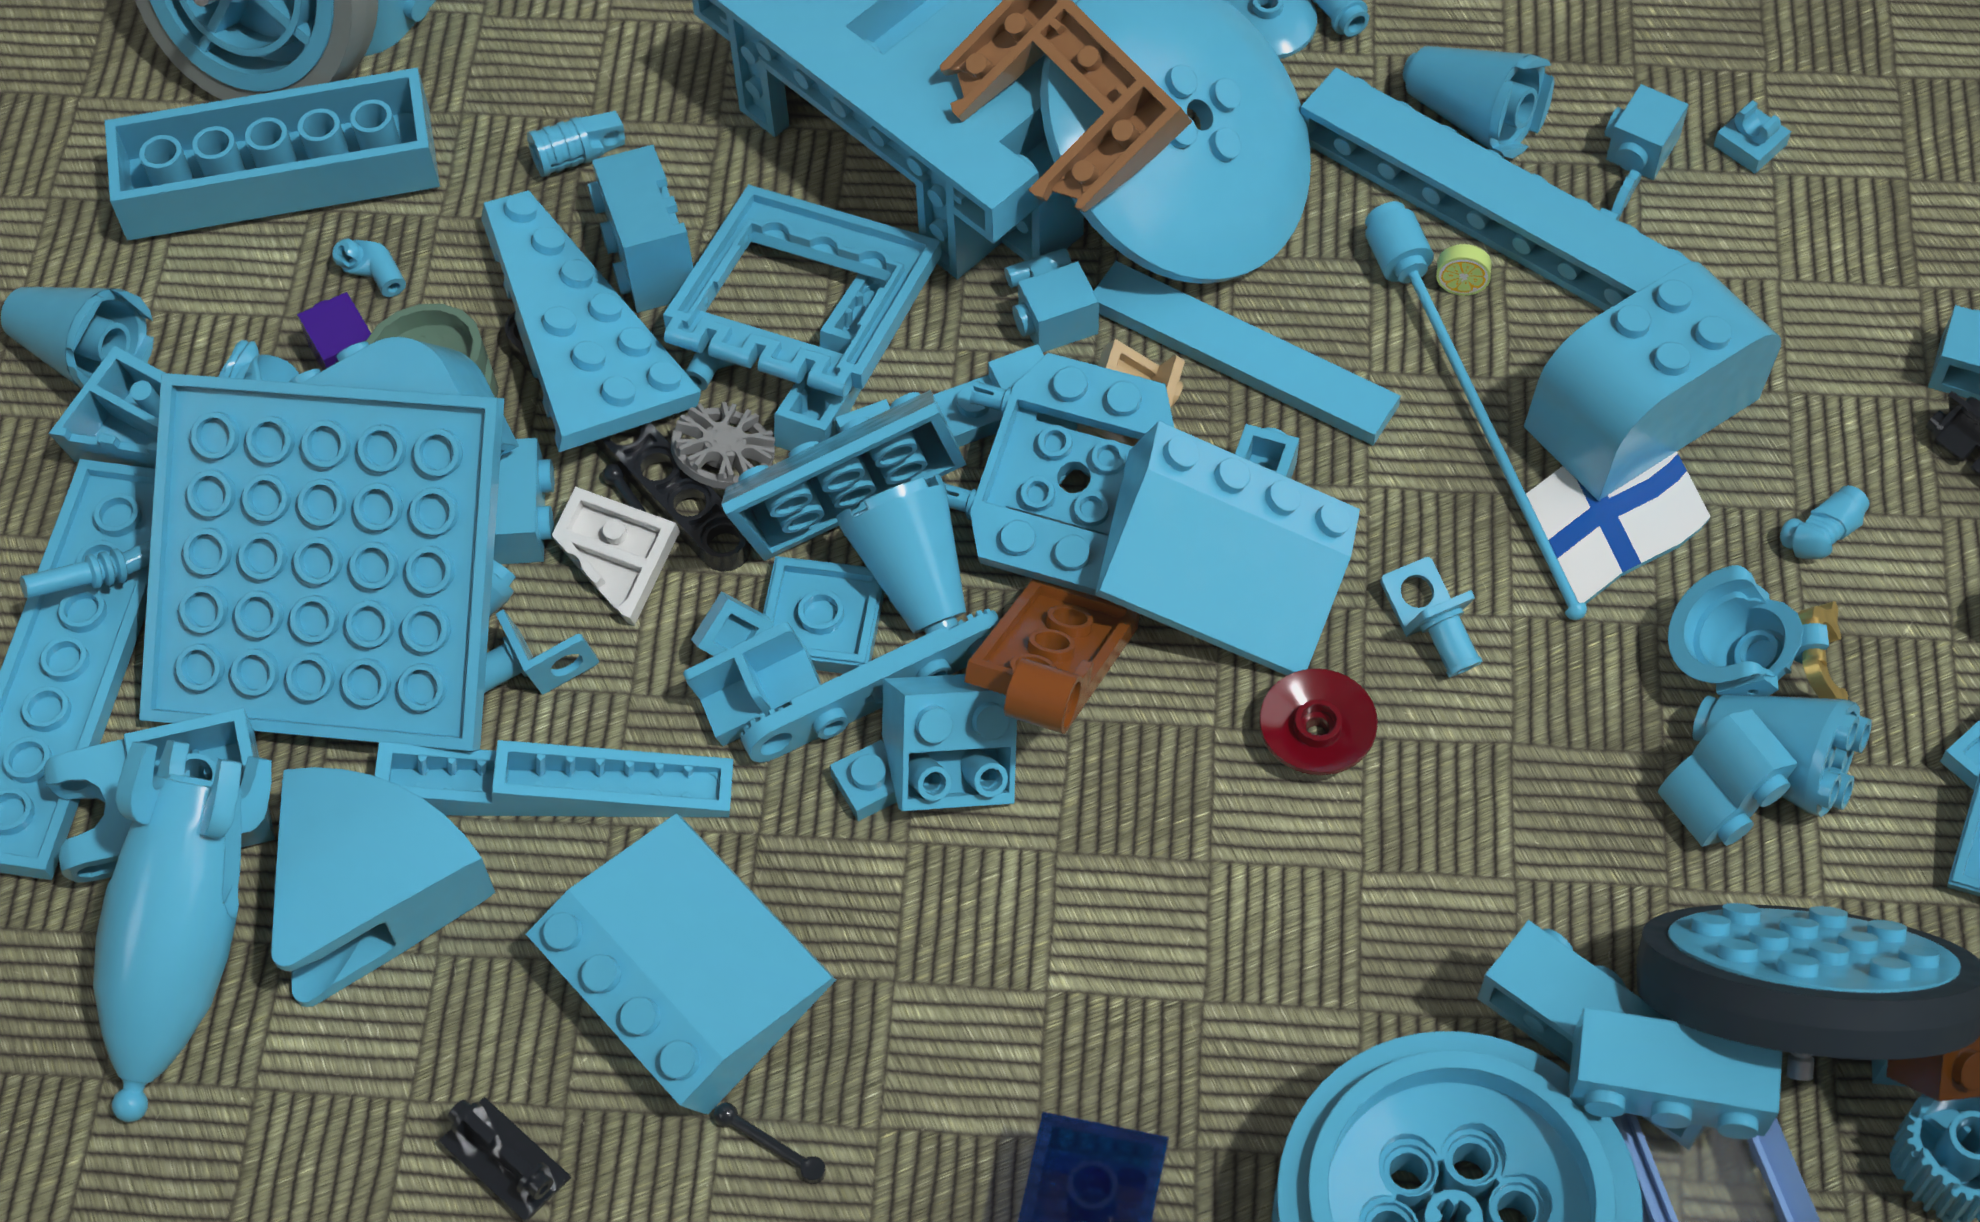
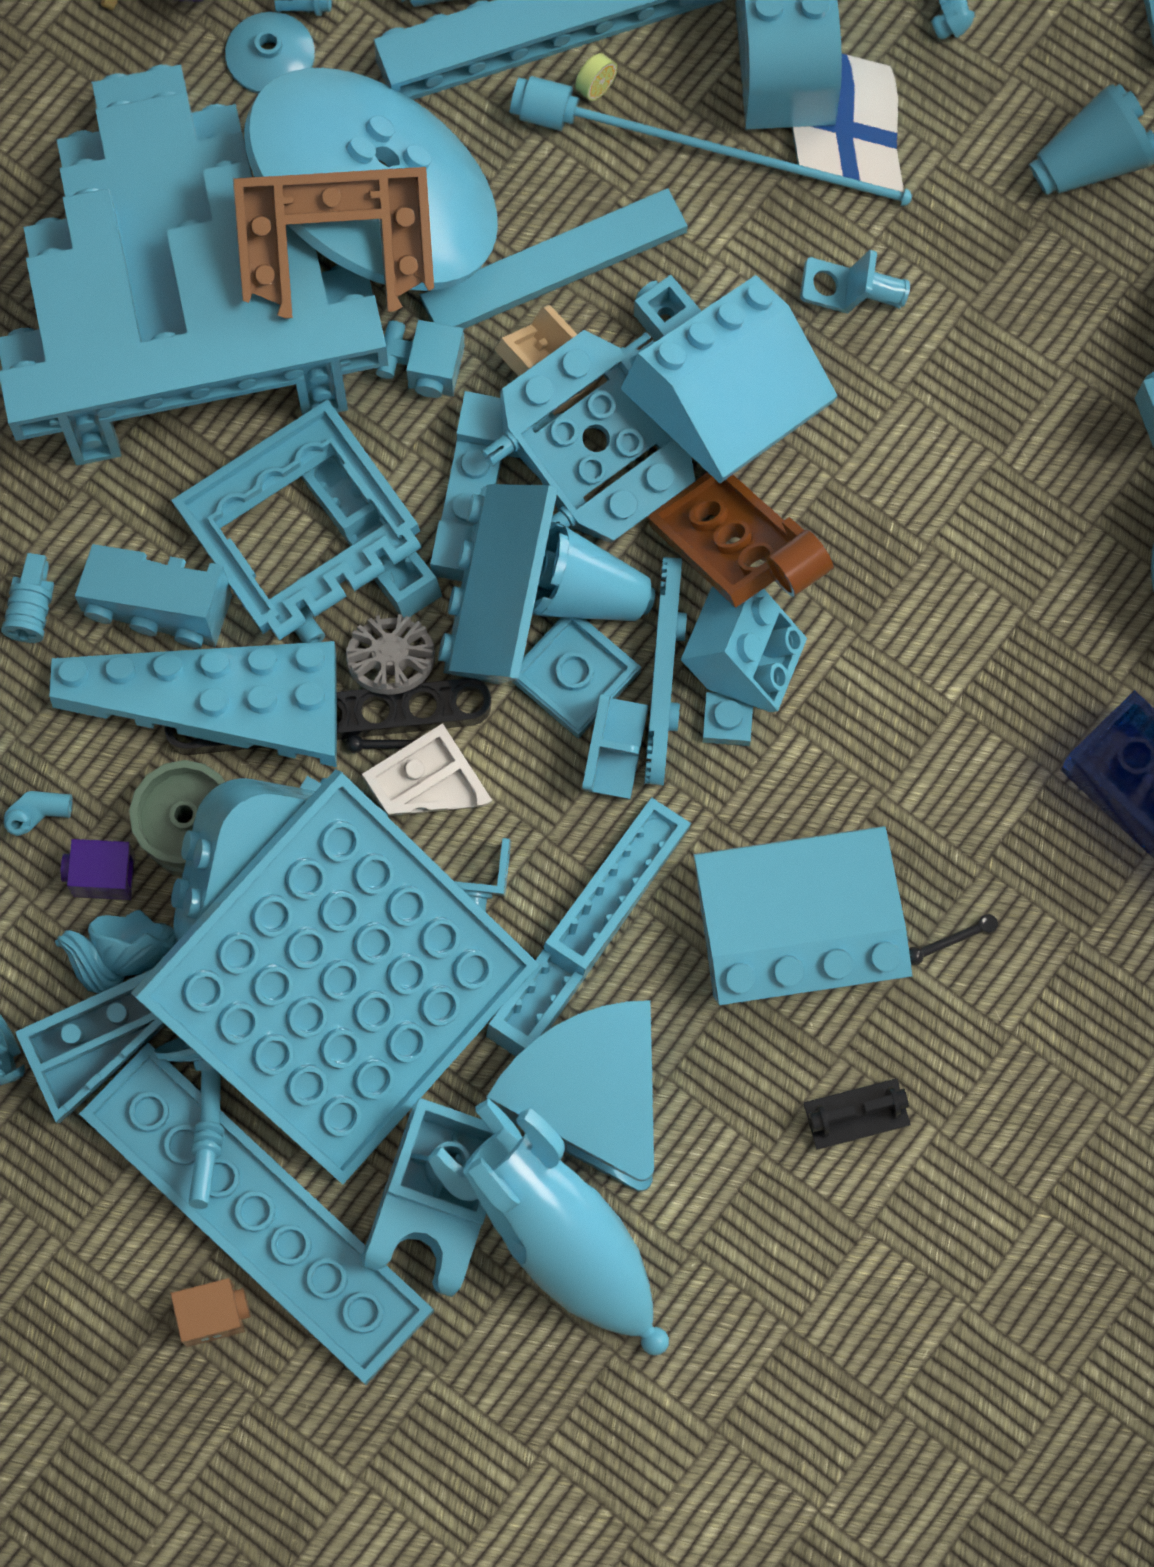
camera: 60 degrees left, 15 degrees up
(728, 625) = (557, 737): medium azure tile -> none
(1320, 700) = (887, 390): dark red dish -> none
(1728, 779) = (1104, 196): medium azure brick -> none
(1745, 642) = (1012, 116): medium azure helmet -> none

